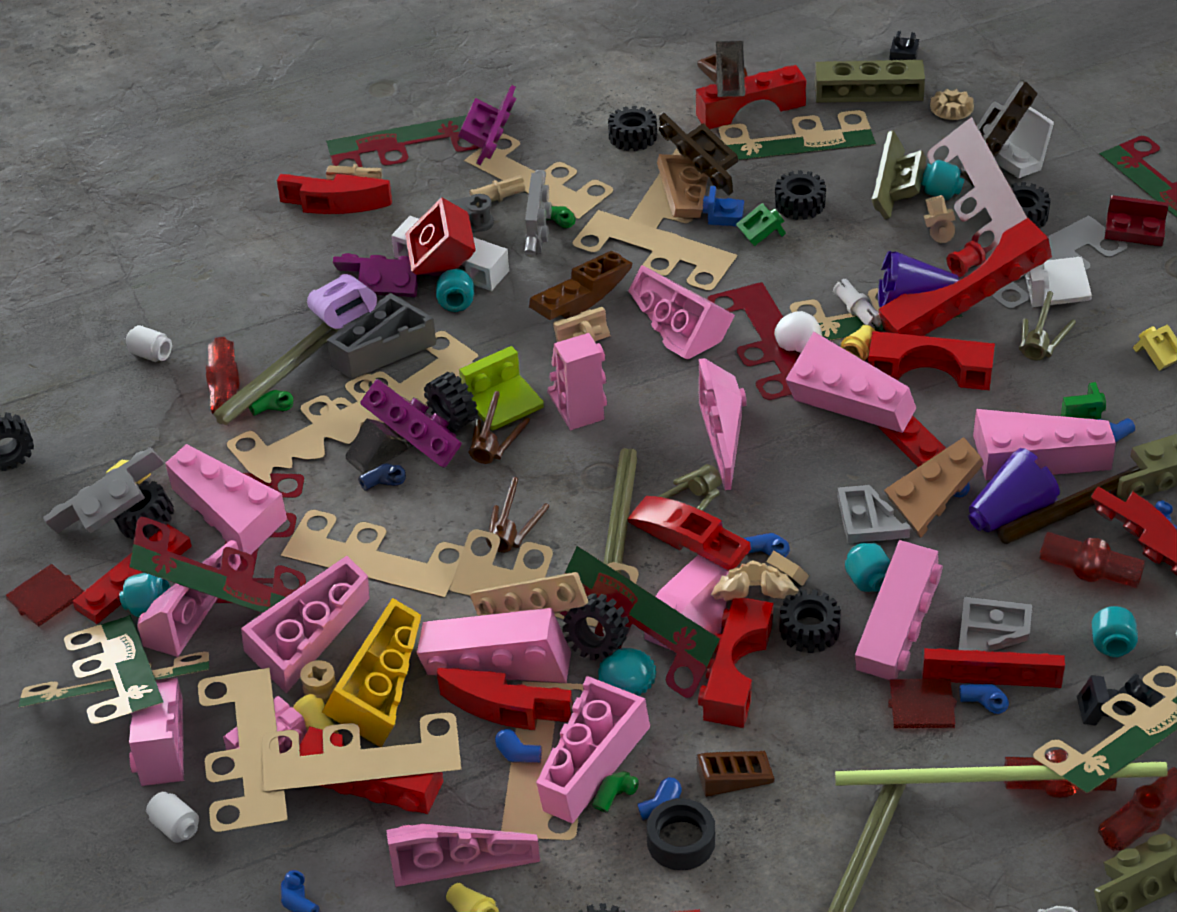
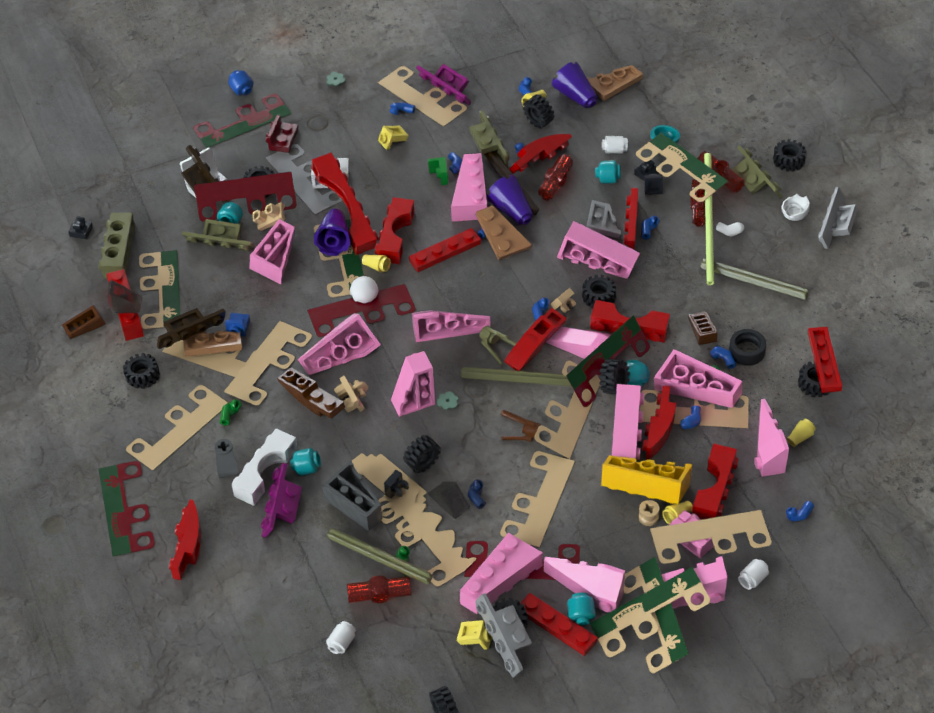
camera: 90 degrees left, 5 degrees up
(44, 595) = (573, 673): clear red piece -> none
(221, 583) = (589, 554): piece -> none
(305, 622) = (608, 517): bright pink wedge -> none
(341, 301) = (310, 516): lavender piece -> none
(355, 171) = (165, 530): tan axle -> none
(357, 764) = (719, 483): tan piece -> none
(404, 380) = (394, 483): none -> black tile
(412, 422) = (438, 473): magenta bracket -> none
(440, 239) = (272, 460): red slope -> none
(484, 124) = (124, 449): magenta bracket -> none
(486, 445) = (453, 439): reddish brown plant -> none
(500, 374) = (405, 431): lime bracket -> none
(501, 189) = (198, 445): tan axle -> none
(536, 214) = (245, 410): light grey plate -> none
(553, 592) = (596, 400): tan bracket -> none
(570, 439) = (447, 400): none -> sand green plant
(753, 573) = (573, 308): tan piece -> none
(760, 224) = (259, 304): green bracket -> none
(800, 195) = (230, 277): black tyre -> none
(849, 386) = (422, 263): bright pink wedge -> none
(857, 303) = (341, 260): white pin -> none
(863, 226) = (273, 252): none -> bright pink wedge
(867, 566) = (563, 263): teal head -> none
(868, 517) = (519, 265): light grey wing -> none
(922, 703) = (651, 252): clear red piece -> none
(952, 104) = (146, 214): tan gear -> none
(961, 261) = (305, 210): red bush -> none
(992, 826) = (730, 230): none -> white arm
(1036, 344) = (383, 184): olive plant -> none

